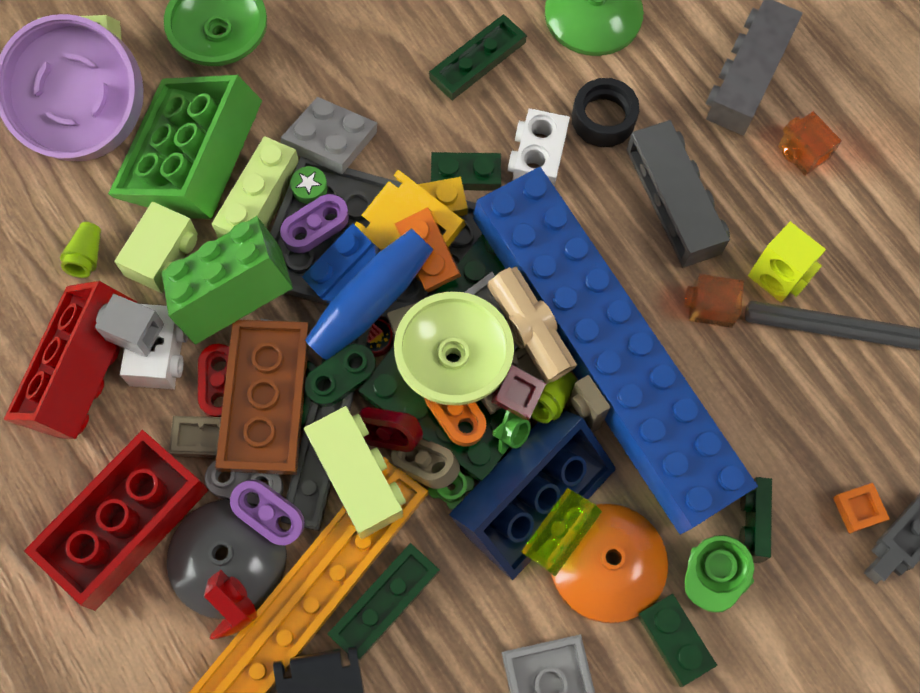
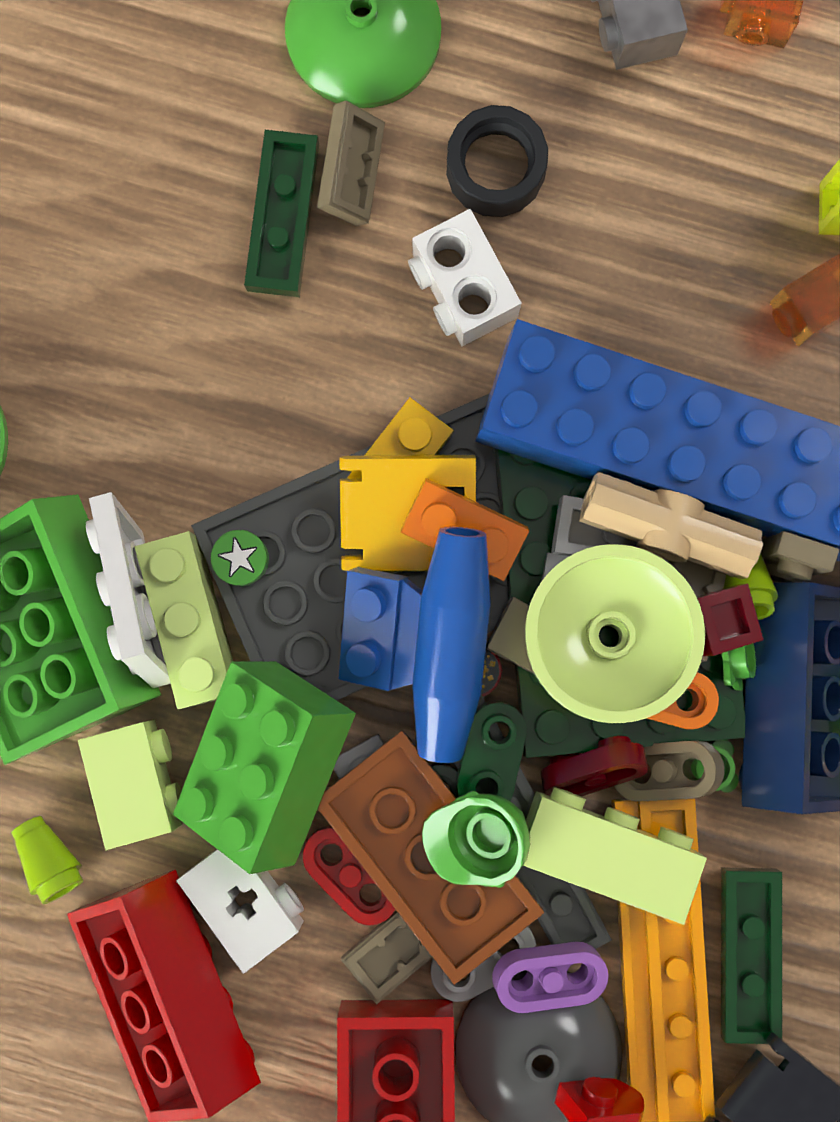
camera: 35 degrees left, 15 degrees up
(129, 324) = (205, 918): light grey brick -> none
(240, 141) = (122, 588): none -> white plate
(294, 395) = (477, 840): none -> bright green hat
(312, 222) = (289, 601): medium lavender plate -> none
(329, 135) = (199, 470): light grey plate -> none
(476, 170) = (395, 375): dark green plate -> none
(531, 60) = (351, 164): none -> dark tan plate
(678, 193) = (667, 198): dark grey brick -> none

